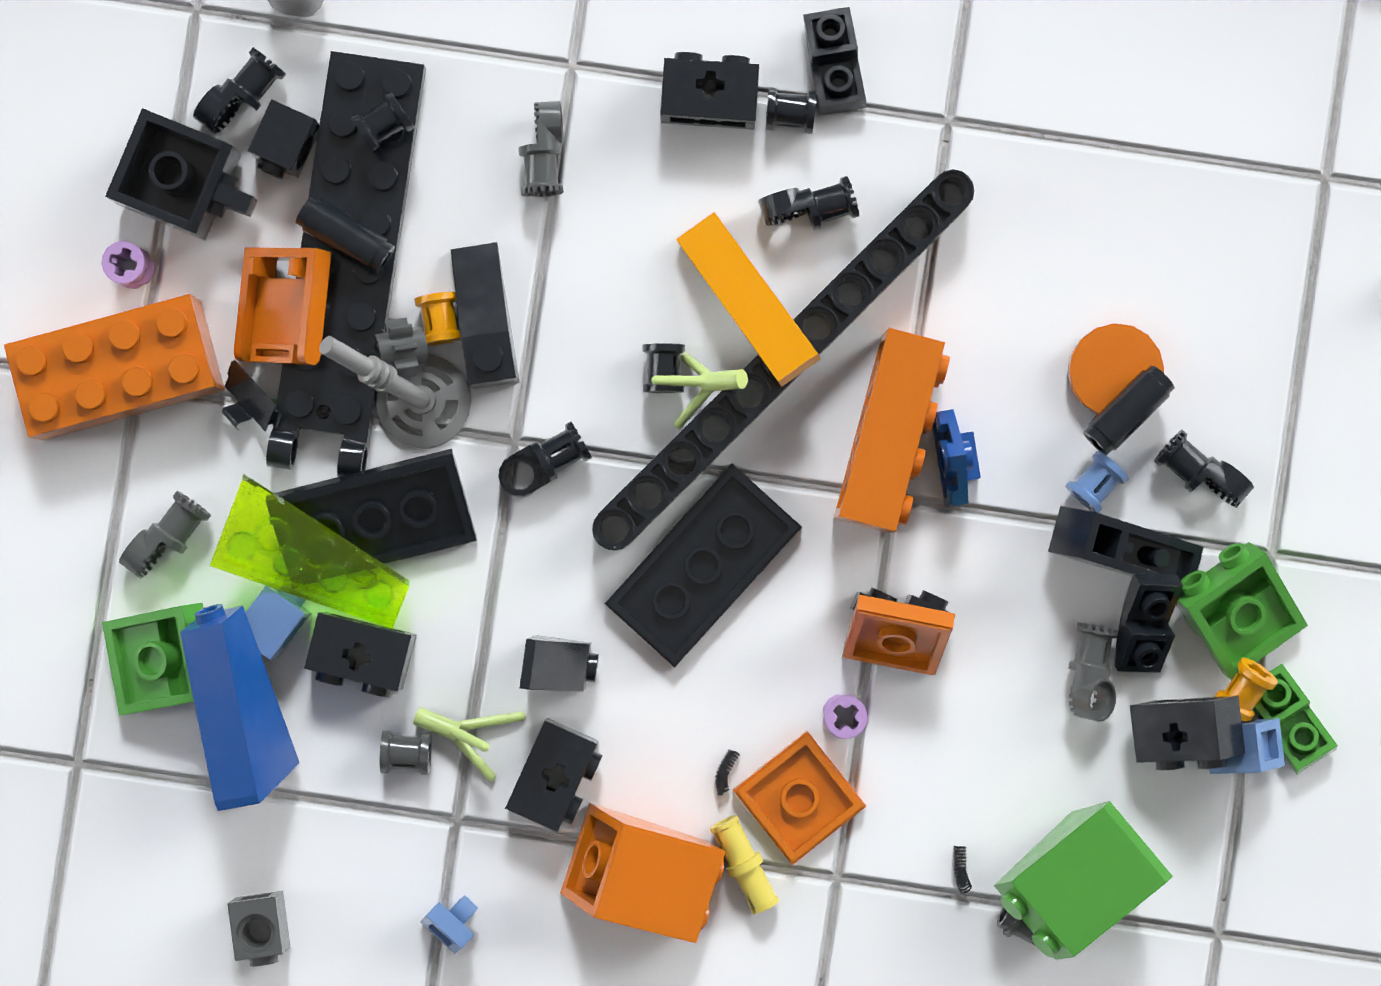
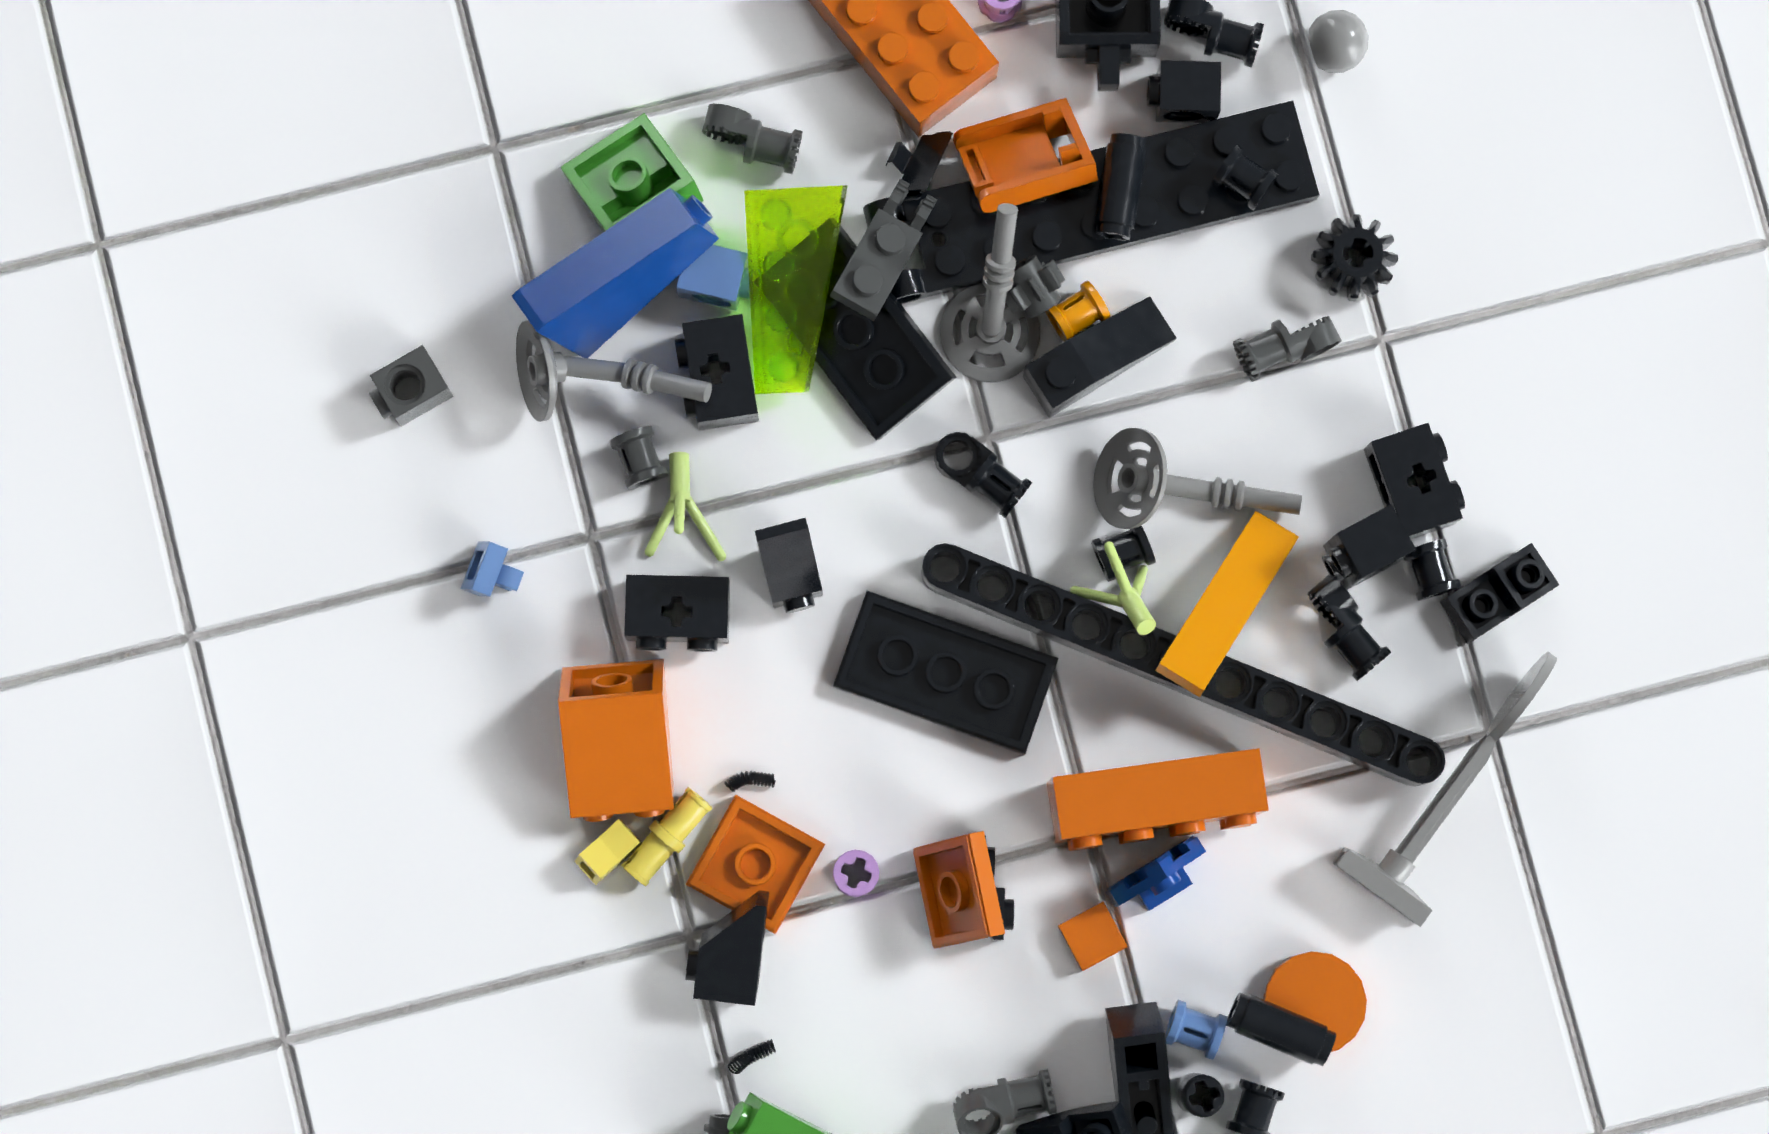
camera: 60 degrees right, 5 degrees down
(294, 802) = (552, 368): none -> light grey dish
(318, 469) = (881, 255): none -> dark grey hinge
(487, 40) = (1337, 245): none -> black gear
(612, 321) = (1148, 481): none -> light grey dish
(735, 919) = (607, 851): none -> light yellow piece
(751, 157) = (1367, 547): none -> black brick
(870, 853) = (731, 955): none -> black slope
(981, 535) = (1092, 936): none -> orange tile
(1037, 262) = (1389, 876): none -> light grey piece
(1170, 501) = (1211, 1102): none -> black piece

